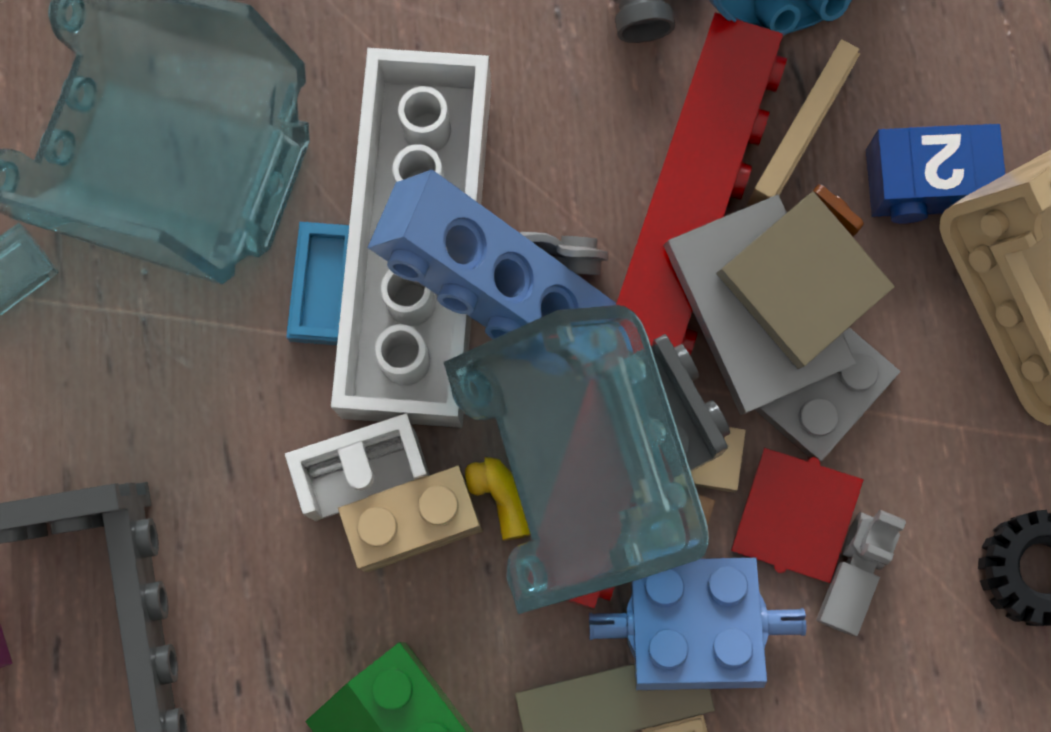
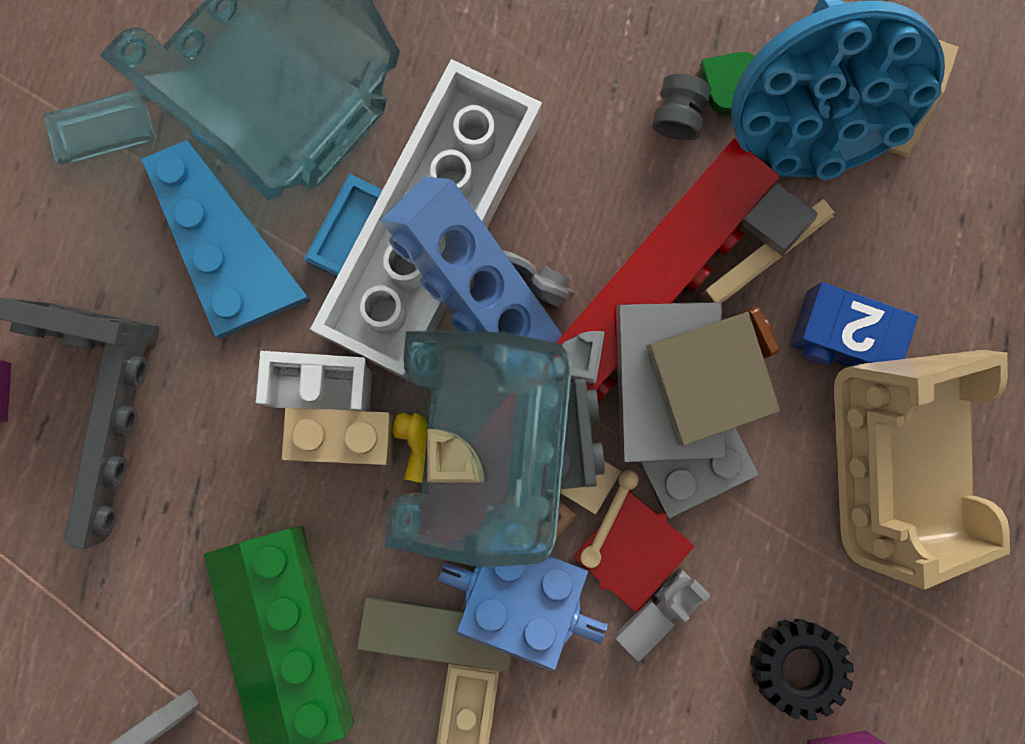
camera: 15 degrees right, 5 degrees up
(192, 368) = (222, 250): none -> dark azure wing
(552, 486) = (451, 459): none -> tan tile
(654, 310) = (585, 355): none -> light grey tile
(752, 538) = (591, 554): none -> tan hinge
(803, 79) = (779, 219): none -> dark grey tile

